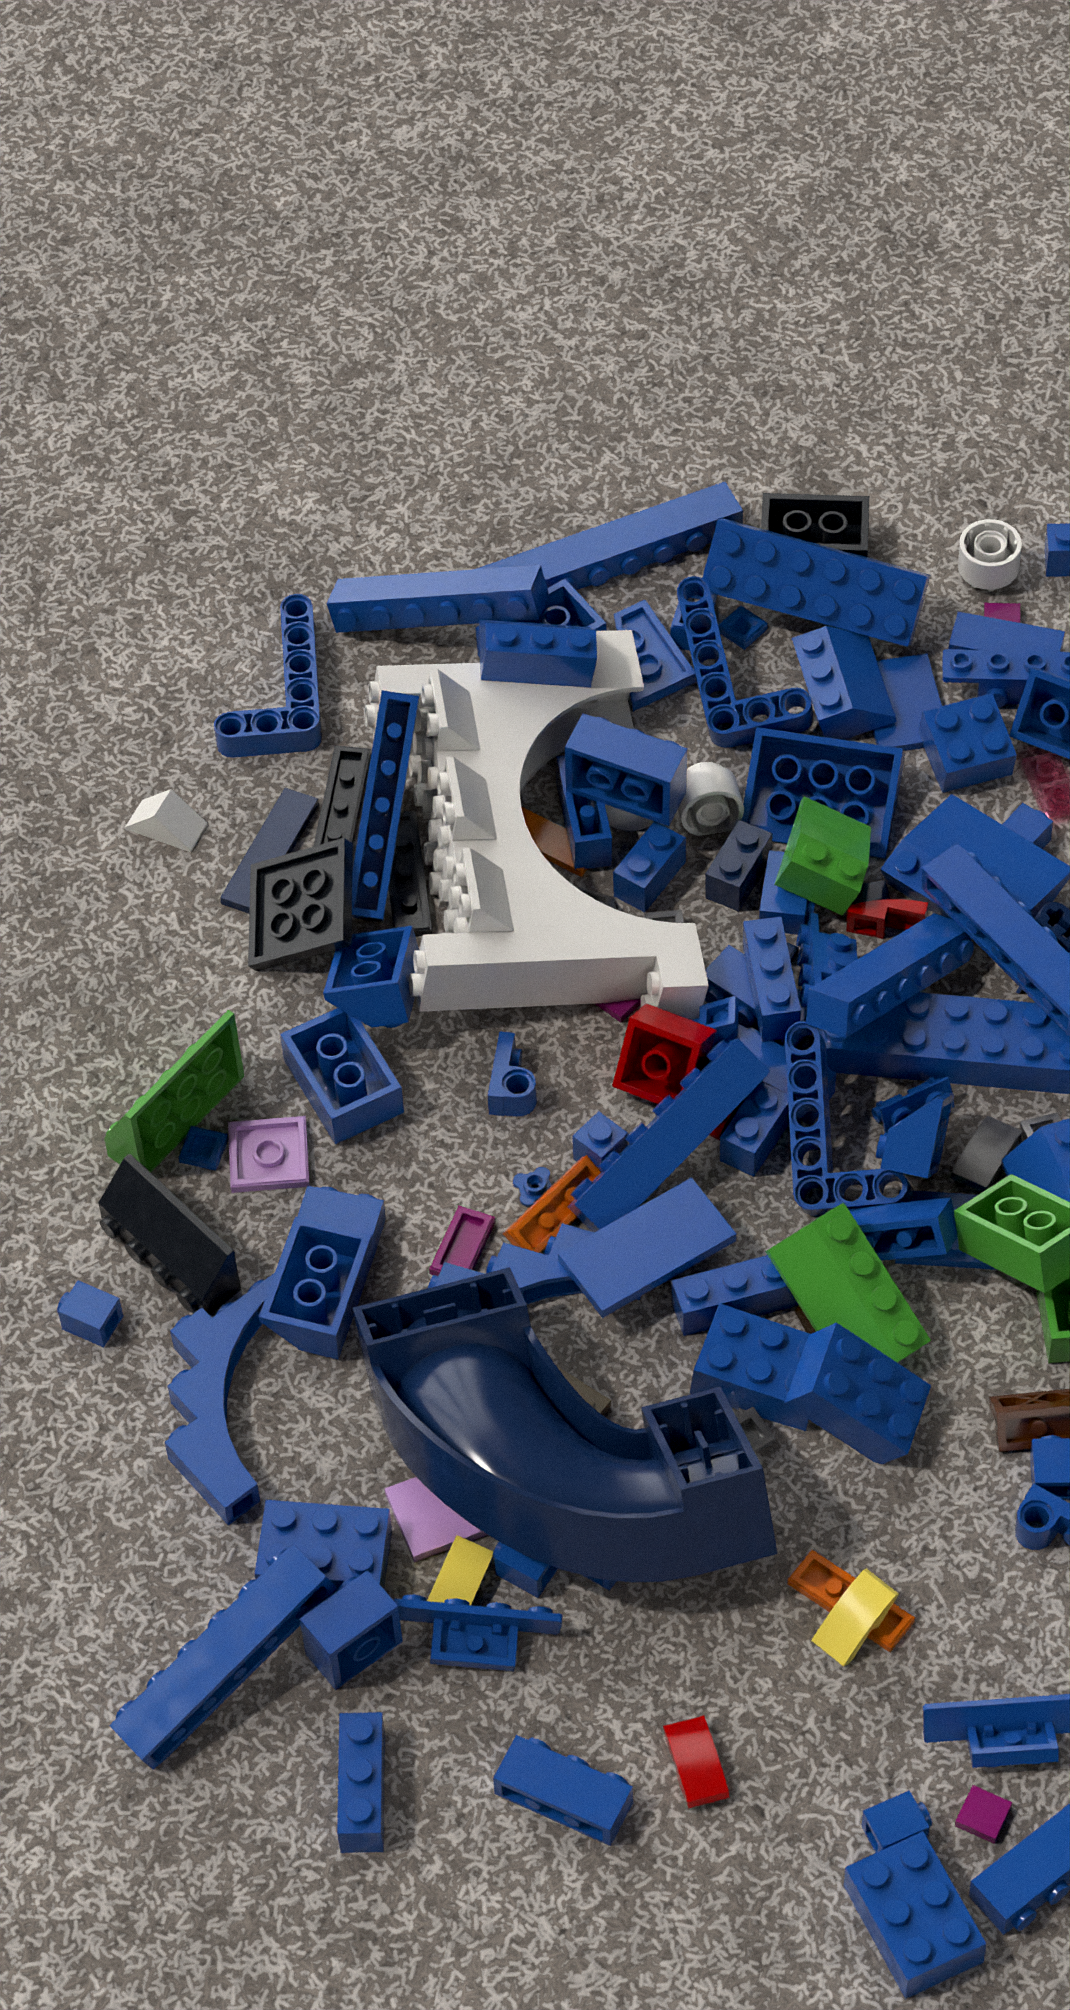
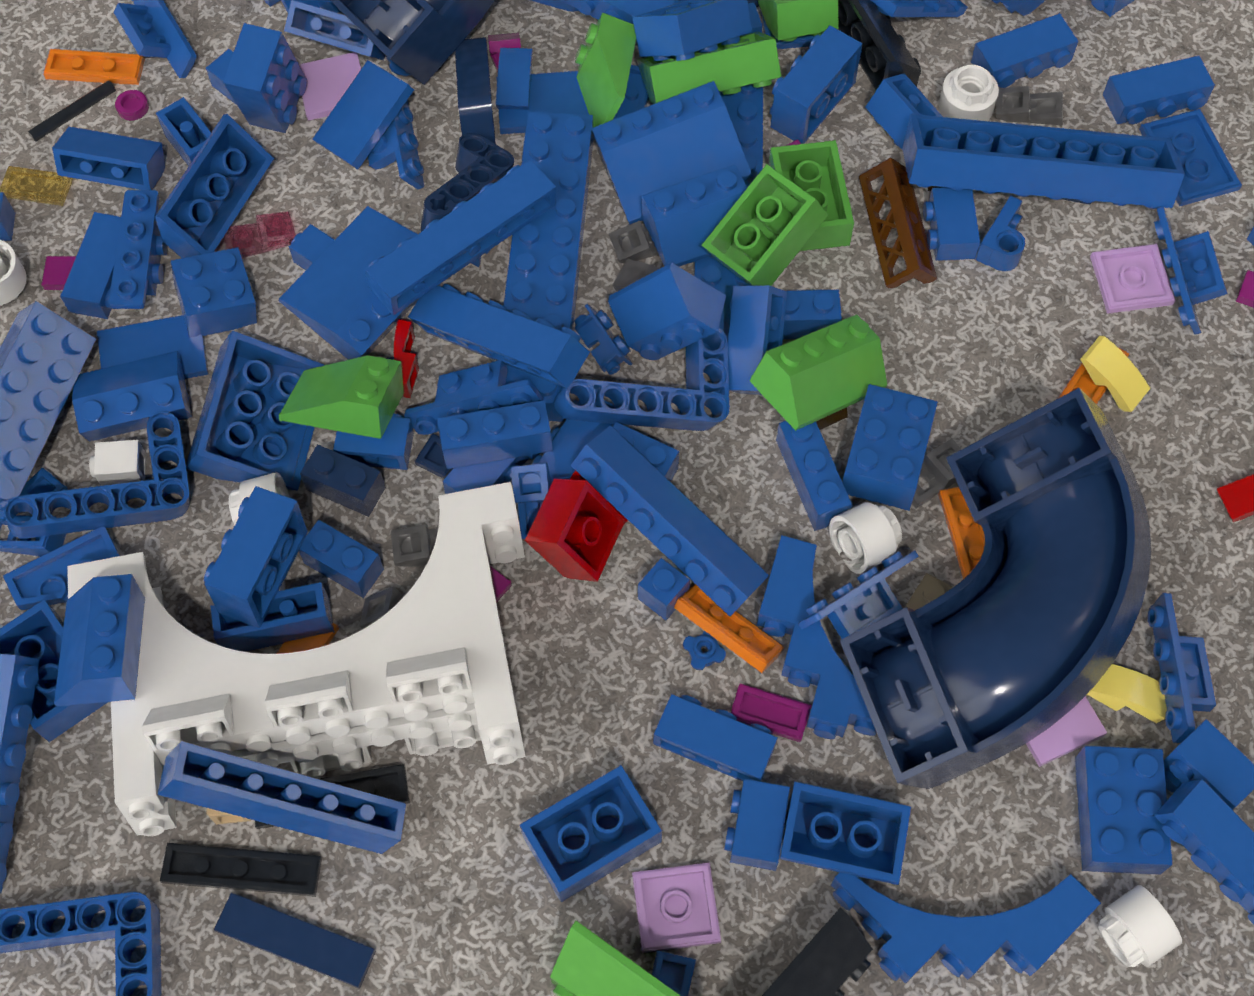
camera: 95 degrees left, 10 degrees up
(198, 1547) = (1139, 928): none -> white piece
(300, 904) = (389, 888): black plate -> none
(373, 977) = (481, 803): blue slope -> none
(432, 1188) = (714, 739): none -> blue brick
(509, 1078) = (569, 681): blue plate -> none
(568, 1326) = (863, 604): none -> blue bracket
(647, 1247) = (785, 536): blue tile -> none
(652, 1336) = (865, 535): none -> white piece
(765, 674) = (118, 462): none -> white brick
(857, 1394) = (922, 363): blue brick -> none
(941, 1297) = (810, 311): none -> blue brick
(1001, 1664) = (1132, 278): none -> lavender tile

